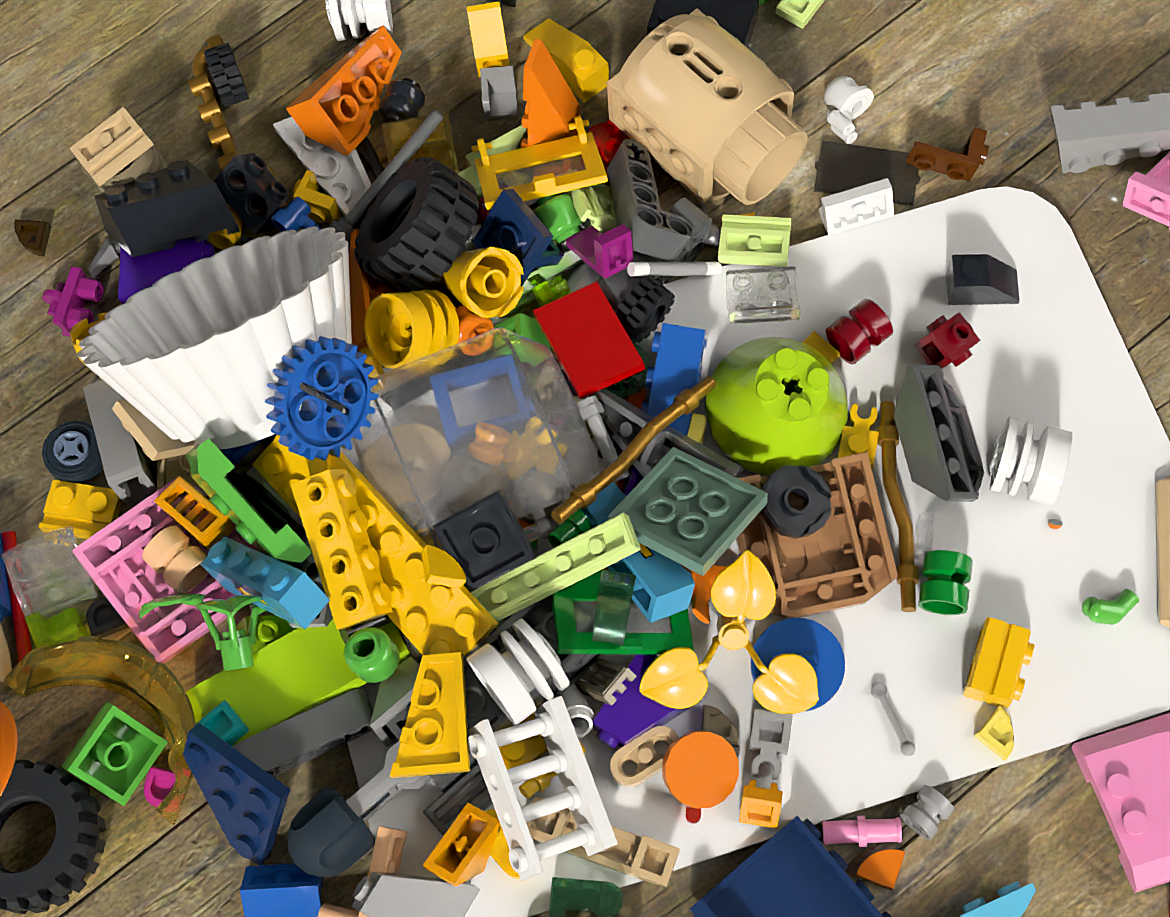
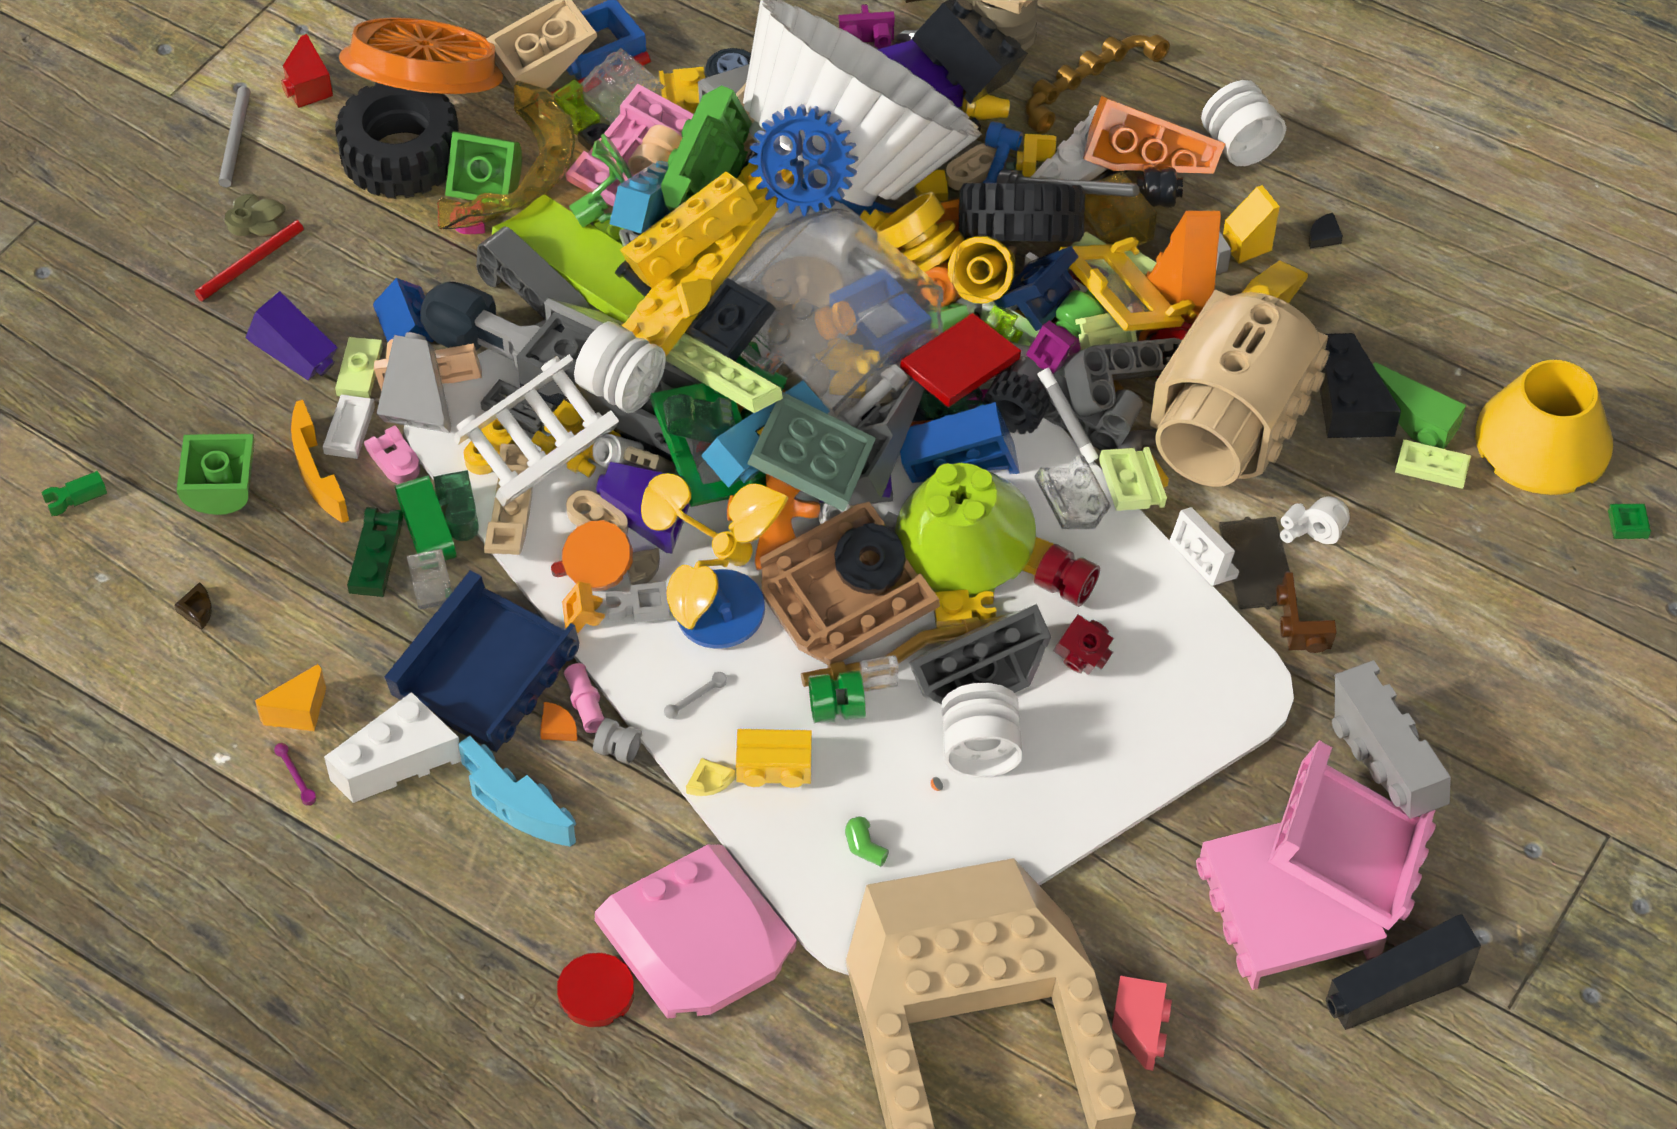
camera: 65 degrees right, 15 degrees down
(225, 723) = (525, 223): teal tile -> none
(226, 74) = (1126, 55): black tyre -> none
(238, 791) = (471, 241): dark blue plate -> none
(250, 195) = (1018, 102): black brick -> none
(371, 654) = (609, 284): bright green head -> none
(436, 722) = (558, 336): yellow wing -> none
(464, 846) = (464, 398): light orange slope -> none
(586, 494) = (923, 436): pearl gold bar -> none
(697, 428) = (908, 477): light yellow tile -> none
(981, 281) = (1166, 664): black slope -> none

